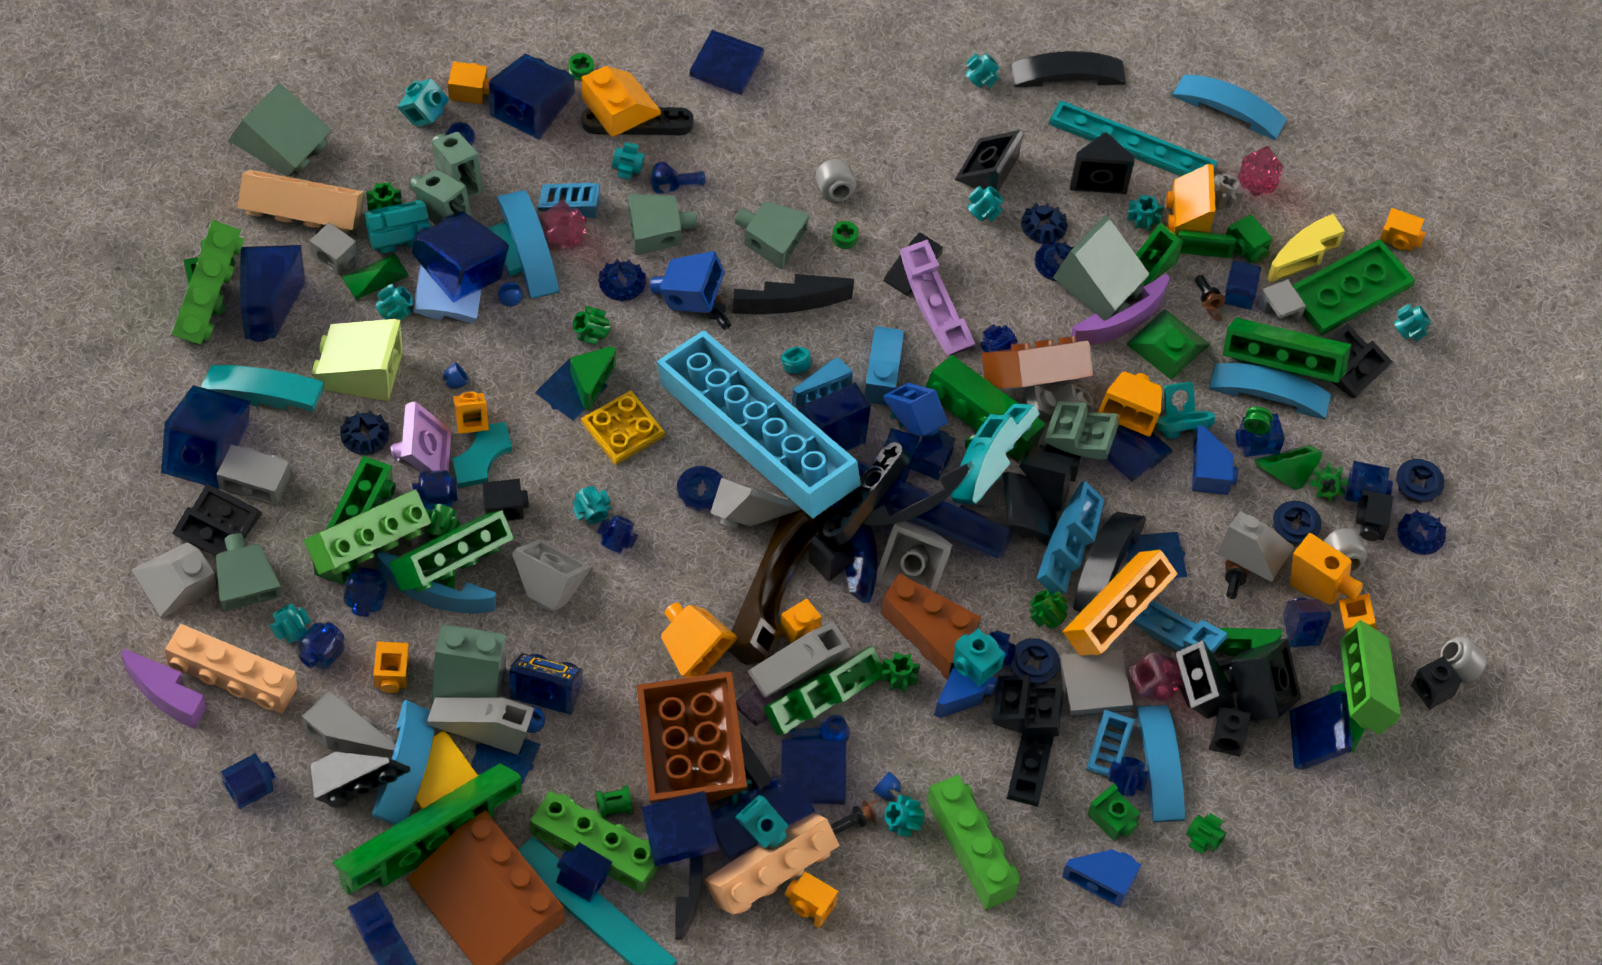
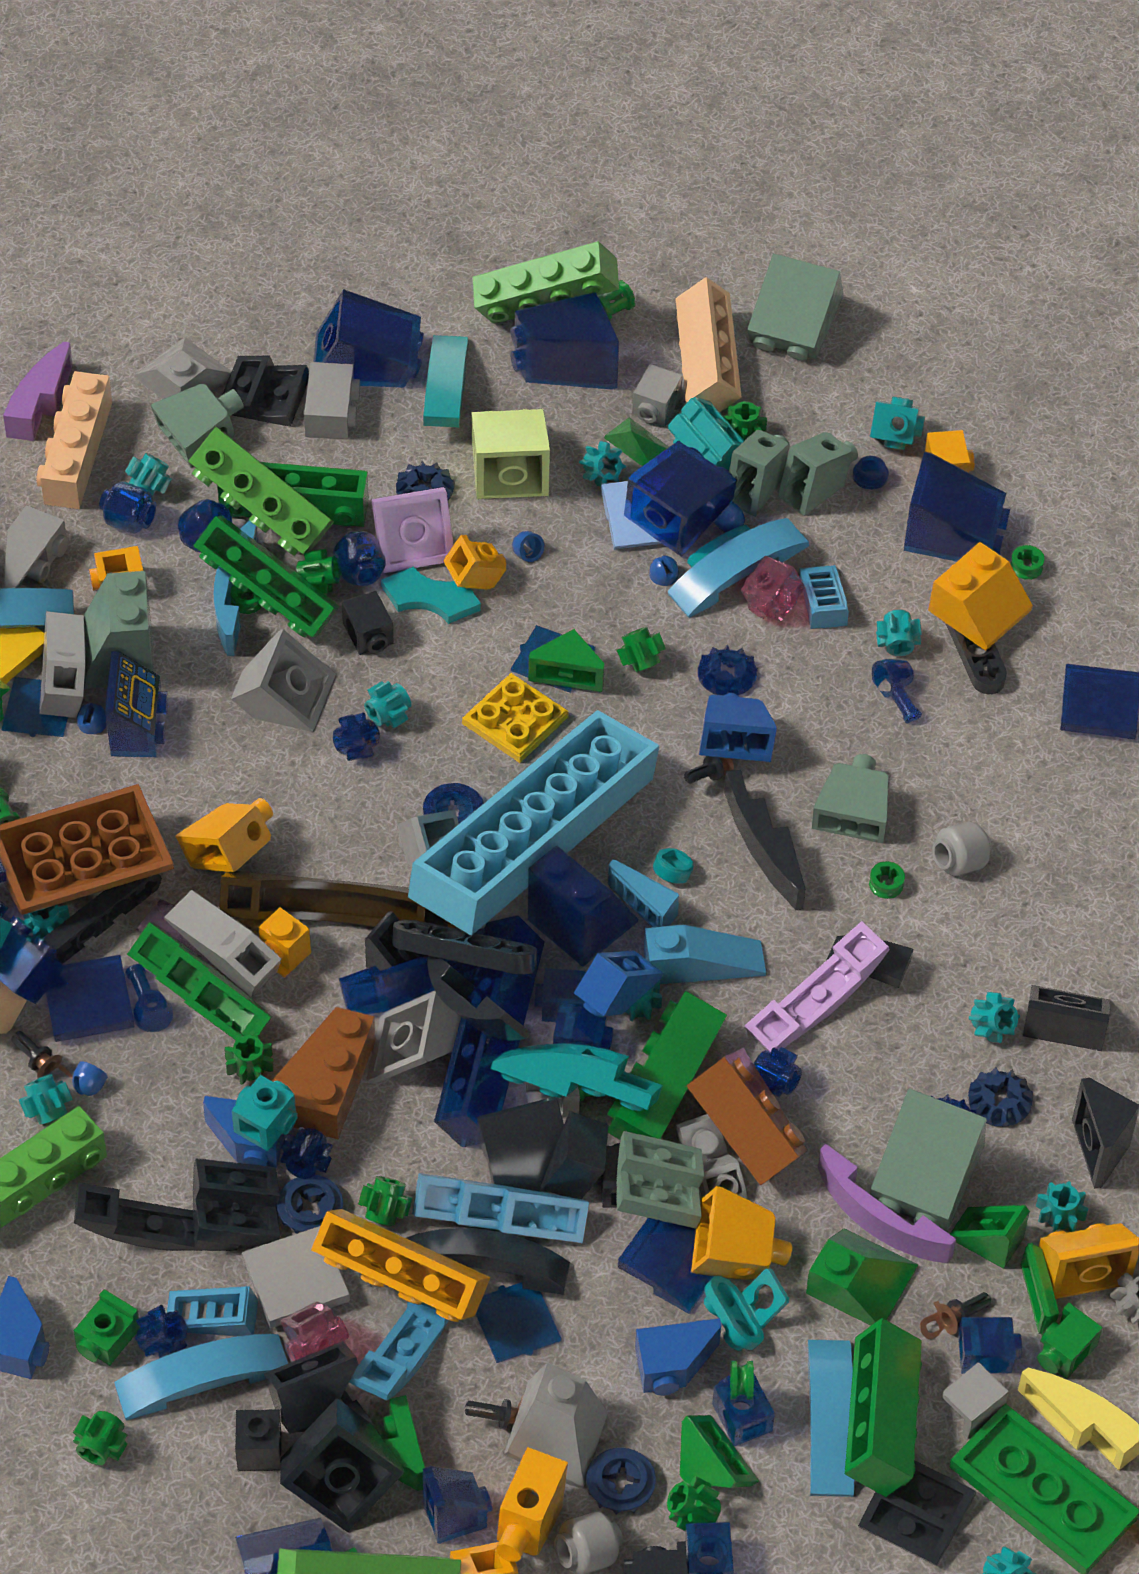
camera: 80 degrees right, 5 degrees down
(657, 222) = (817, 680): sand green torso -> none

